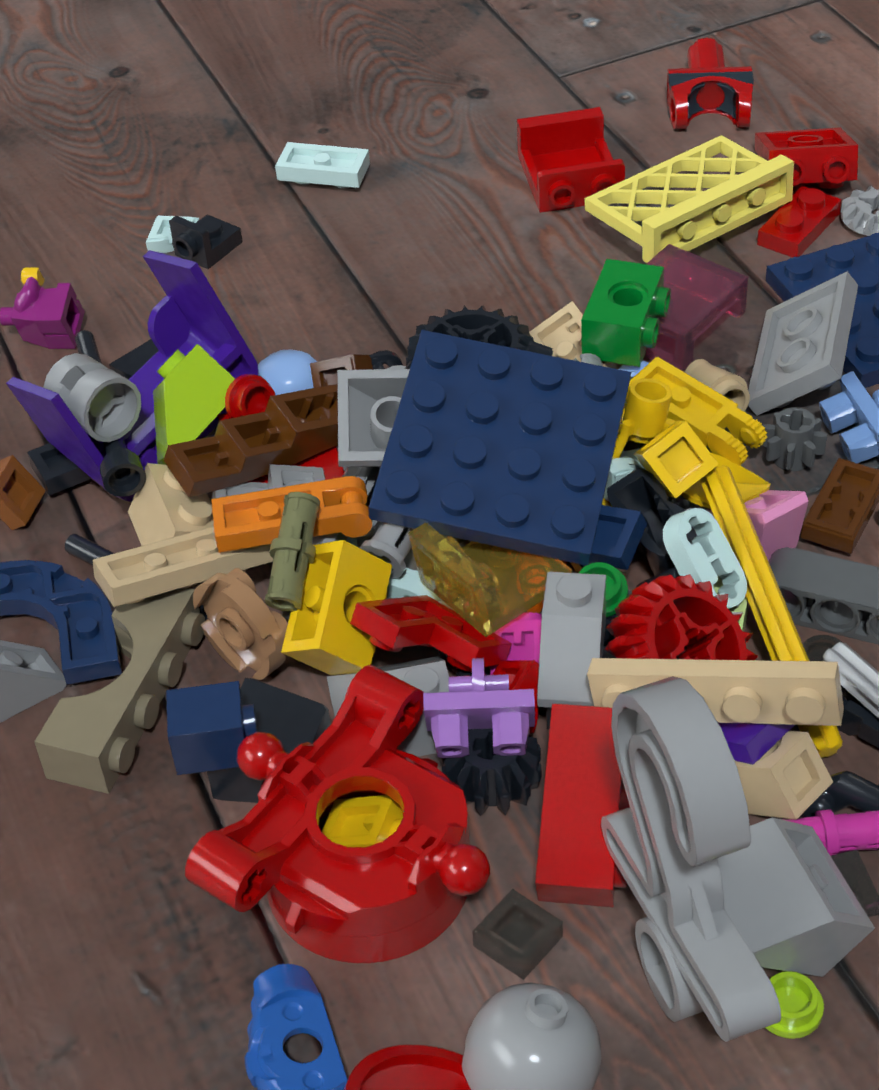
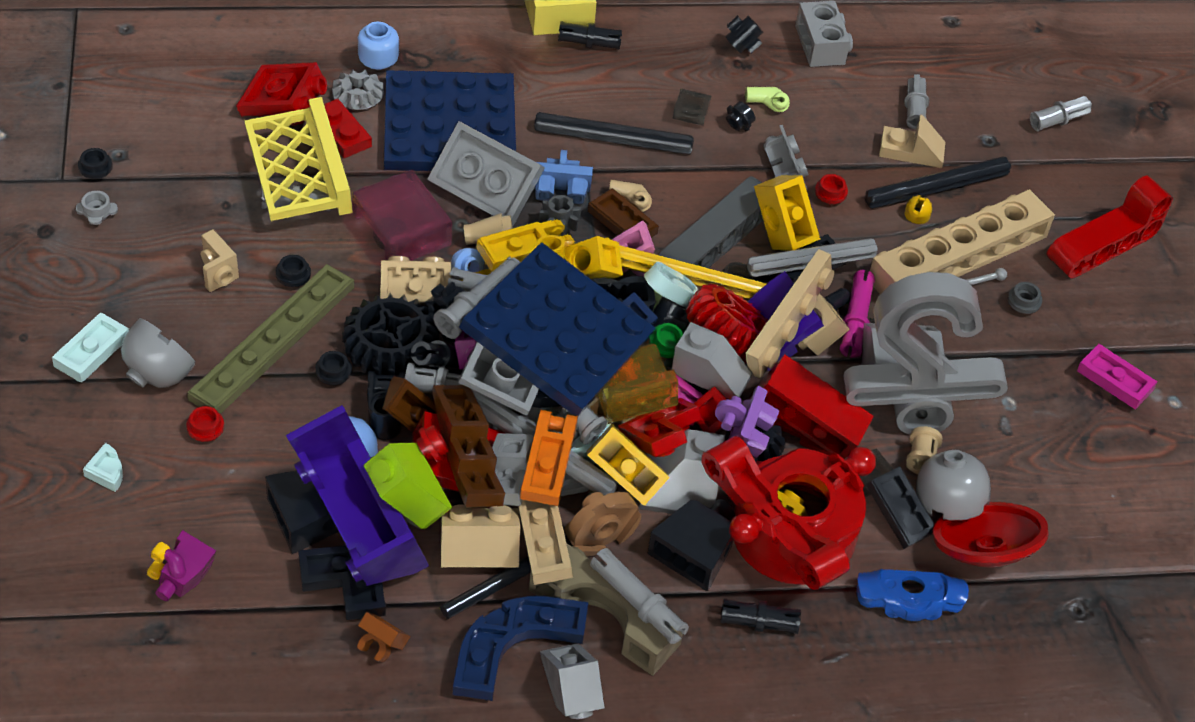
camera: 80 degrees left, 5 degrees up
(95, 699) = (651, 606): none -> light grey pin
(96, 396) = (394, 515): light grey wheel -> none
(120, 468) = (434, 542): black piece -> none
(169, 863) = (760, 616): none -> black pin
(205, 240) = (136, 447): black bracket -> none
(208, 726) = (703, 552): dark blue brick -> none
(261, 272) = (205, 424): none -> red plate
(292, 551) = (596, 460): olive pin -> none
(325, 198) = (154, 357): none -> light grey cylinder
(395, 333) = (333, 368): none -> black plate
(423, 281) = (271, 339): none -> olive tile
(457, 987) = (901, 507): none -> black plate
(502, 202) = (219, 261): none -> tan bracket
(526, 102) = (96, 207): none -> light grey plate
(530, 258) = (293, 271): none -> black plate
(566, 158) = (187, 211): red panel -> none
(588, 80) = (94, 163): none -> black plate
(622, 983) = (924, 445): none -> tan bush
(625, 312) = (429, 235): green brick -> none
(709, 87) = (160, 107): red connector -> none

